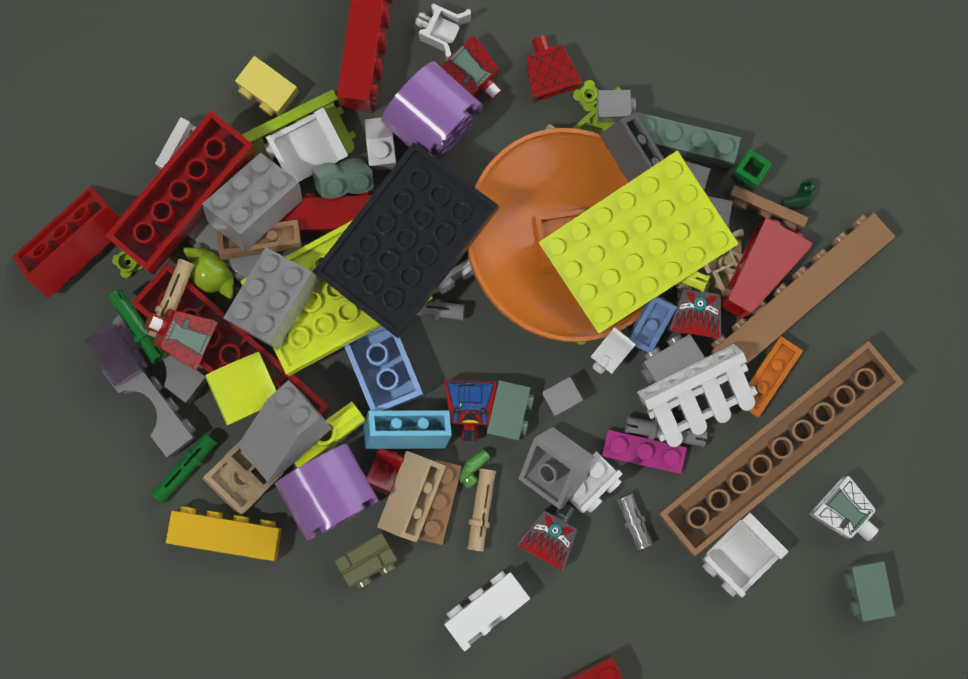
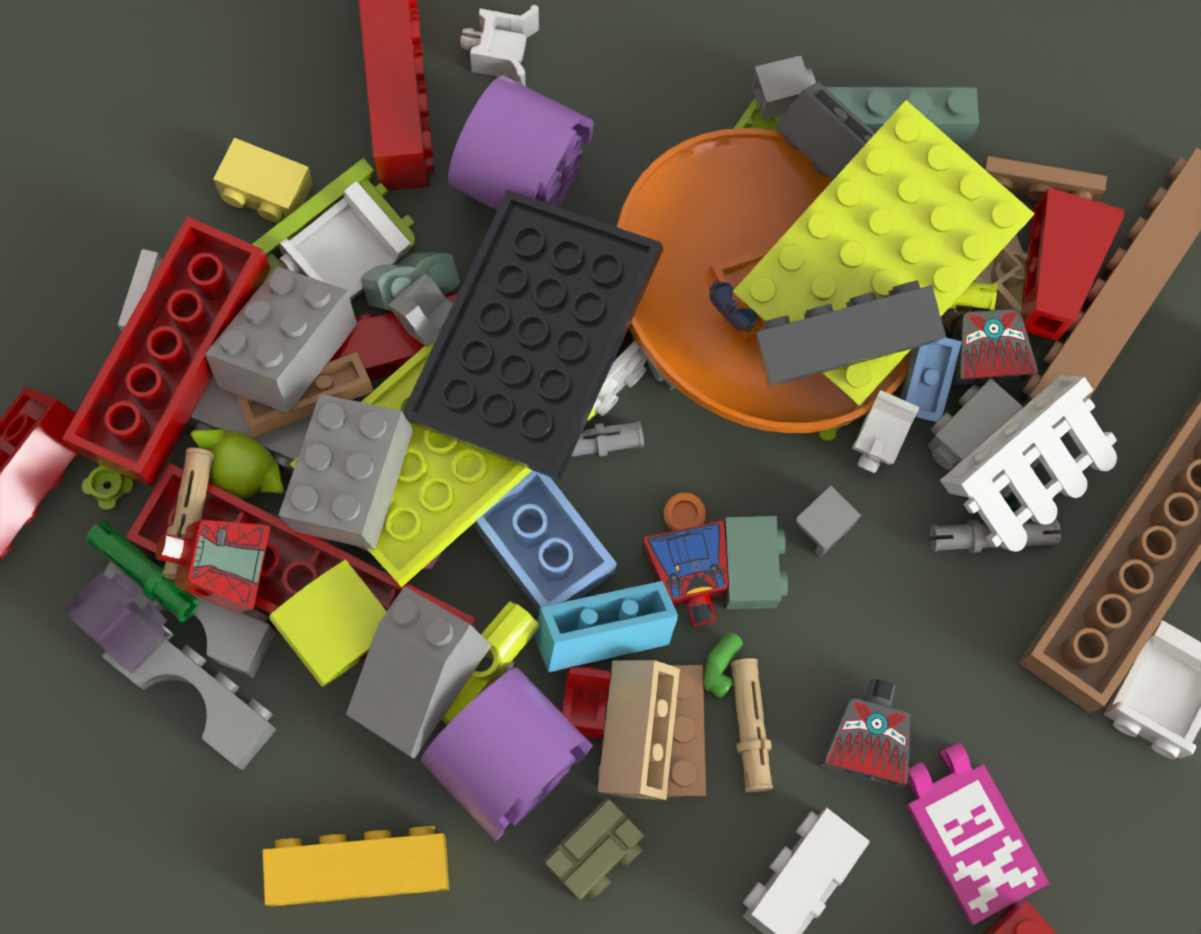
camera: 20 degrees left, 10 degrees down
(183, 469) = (267, 779): green pin -> none
(237, 480) = (359, 774): tan slope -> none
(344, 203) = (422, 310): none -> light grey panel
(380, 145) = (454, 224): white slope -> none
(474, 69) = (567, 81): torso -> none
(477, 368) = (683, 511): none -> orange tile
(539, 260) = (721, 297): none -> dark blue piece
(550, 71) = (674, 67): red torso -> none
(555, 467) = (848, 628): light grey slope -> none
(580, 95) = (735, 99): lime plate -> none
(596, 295) = (849, 335): none -> dark grey brick
(596, 610) = (973, 836): none -> dark pink tile
(600, 478) = (906, 641): white bracket -> none
(635, 521) = (990, 683): light grey pin -> none
(643, 452) = (970, 574): dark pink plate -> none
(751, 170) = (1003, 130): green brick -> none
(772, 372) = (1124, 410): orange plate -> none
(802, 198) = (1085, 152): dark green arm -> none

